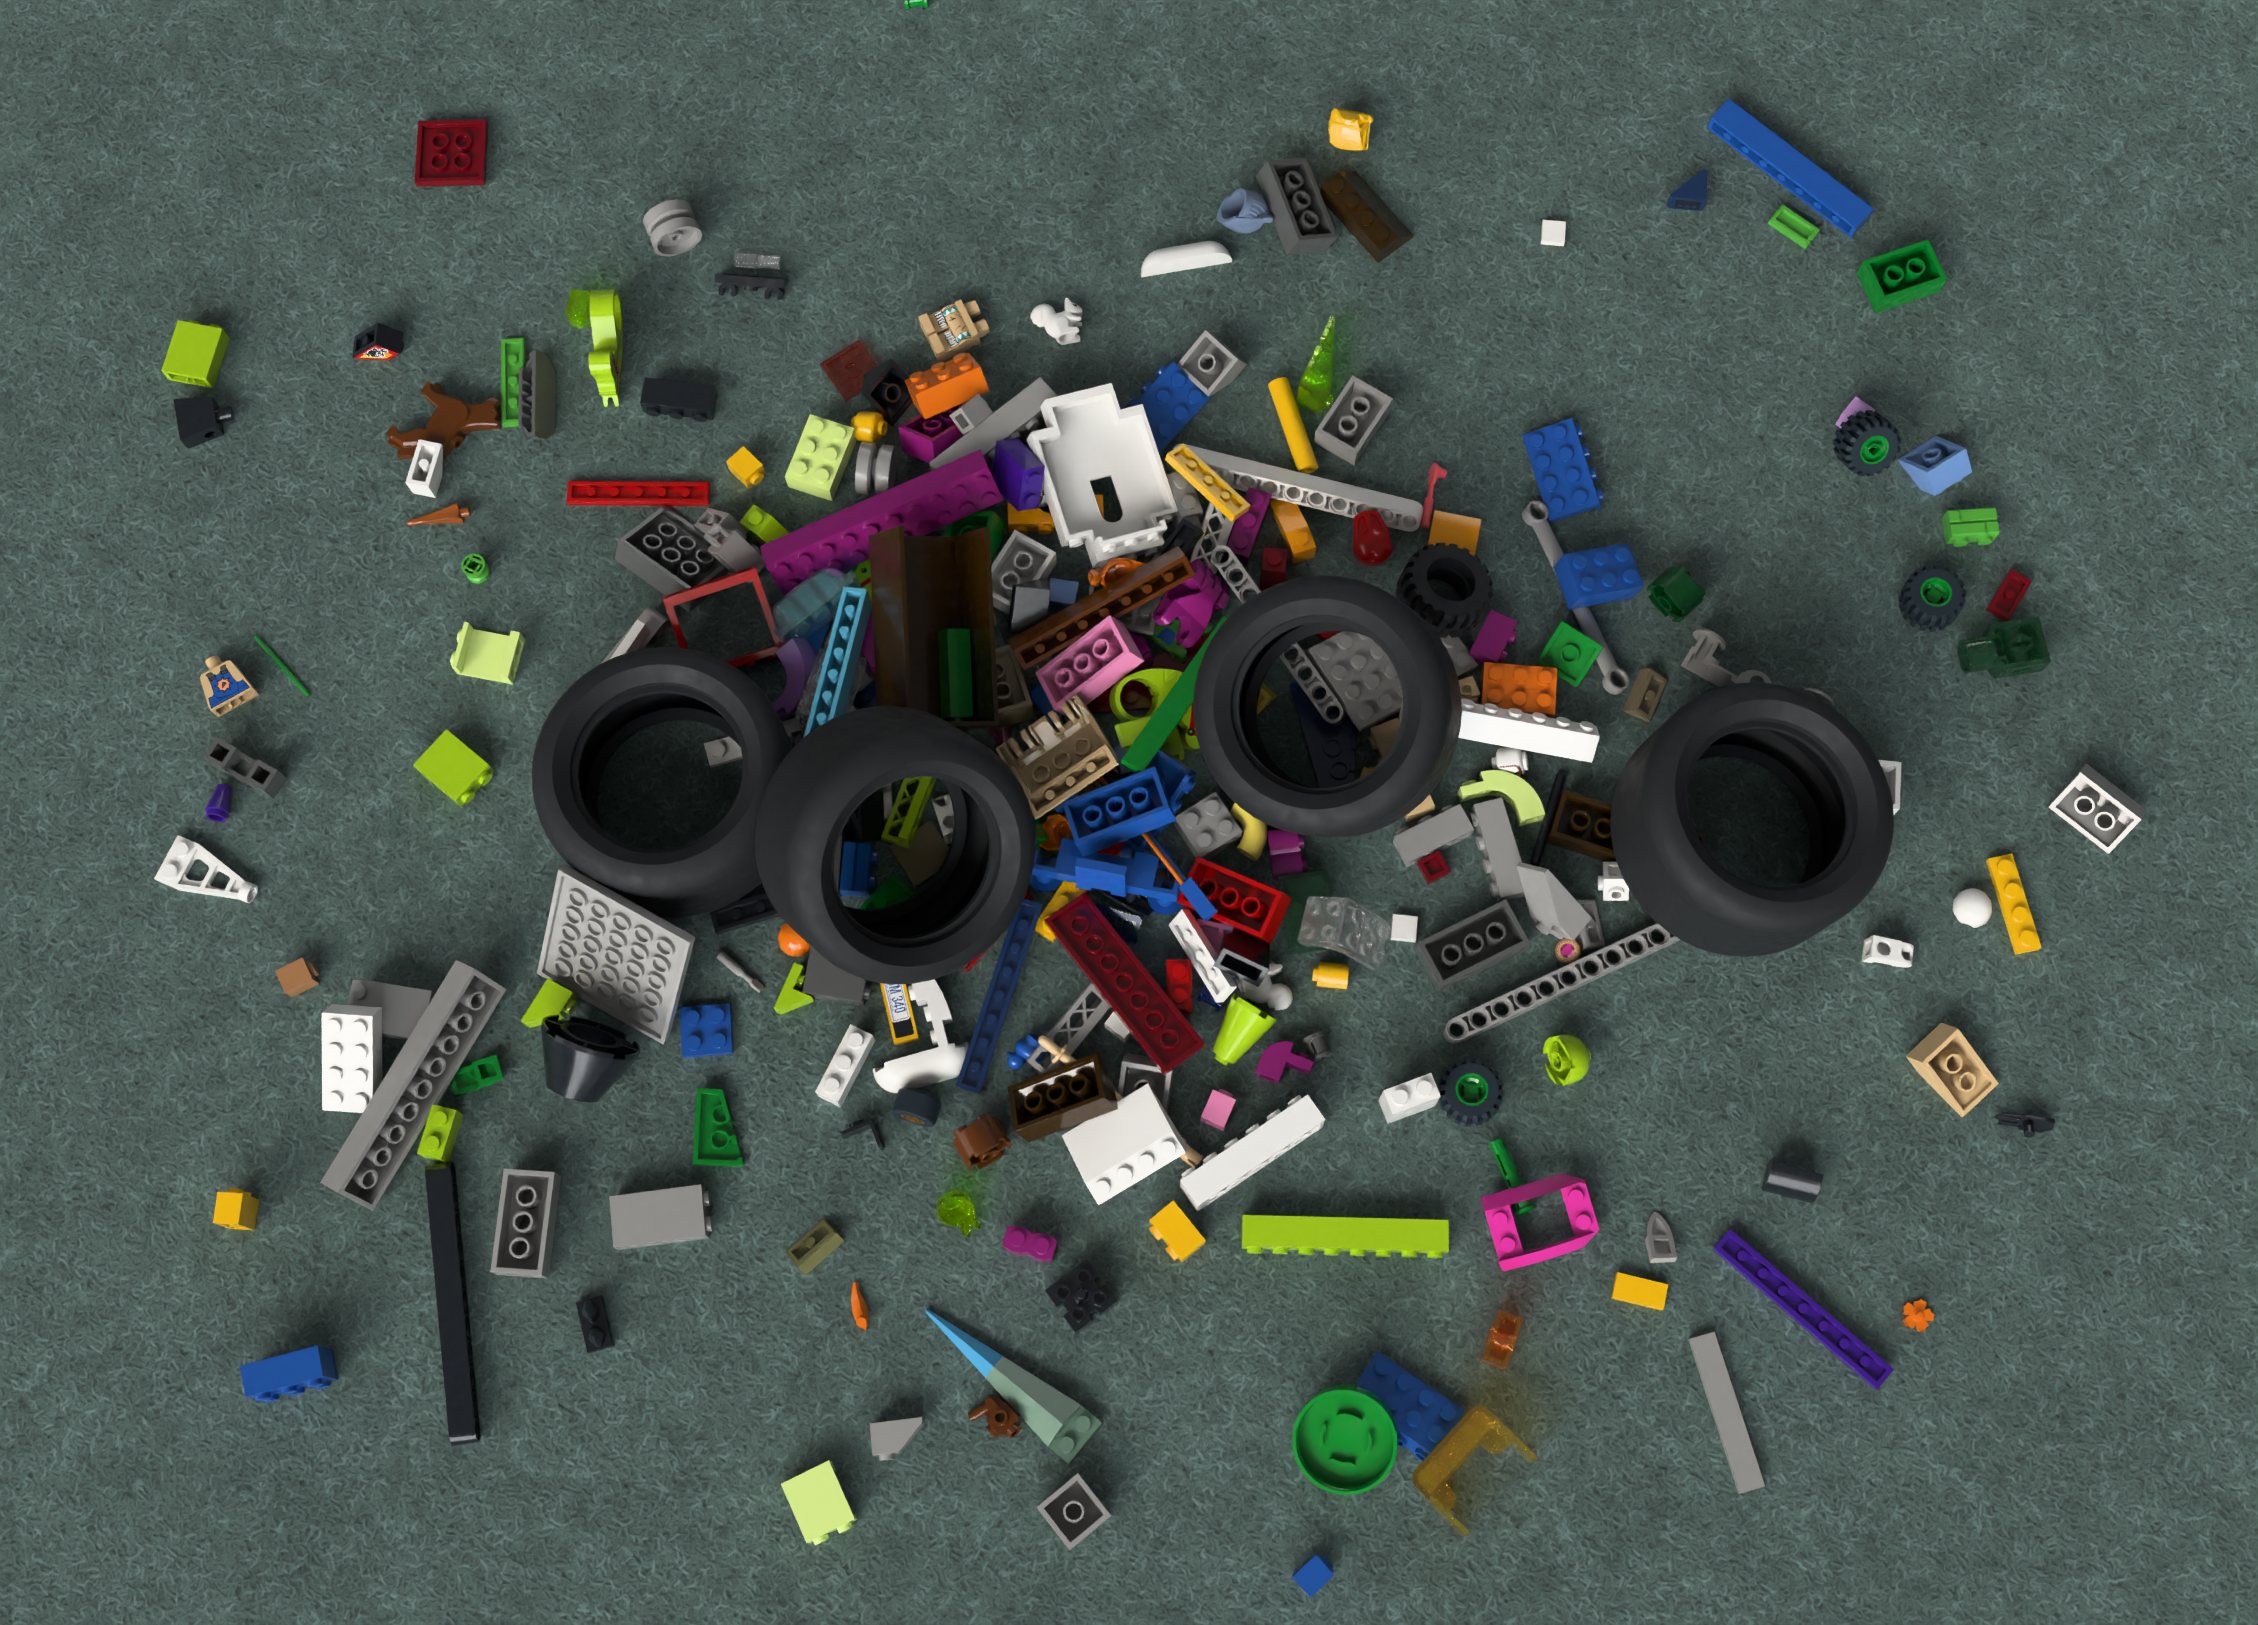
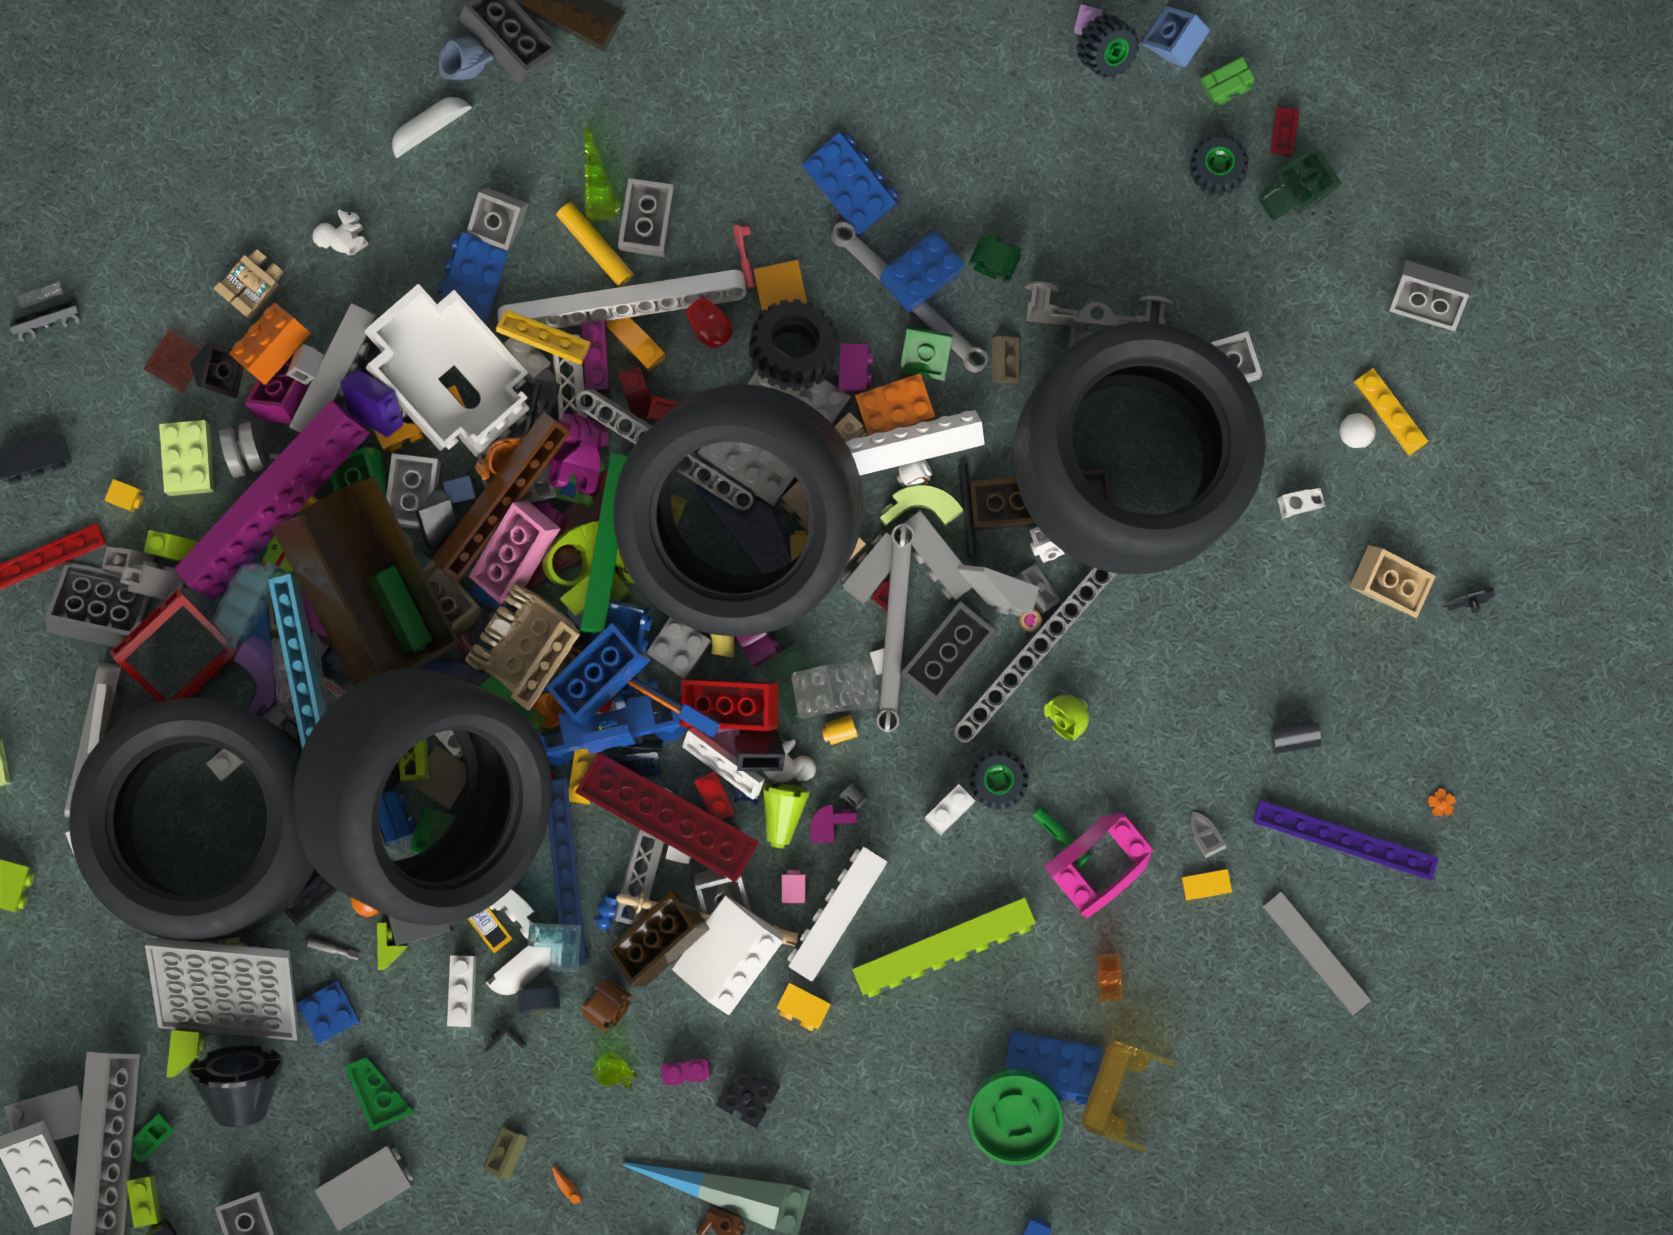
camera: 20 degrees left, 10 degrees up
(869, 426) = (216, 410): yellow head -> none
(966, 1054) = (563, 941): none -> clear light blue brick
(1429, 899) = (895, 628): none -> light grey piece

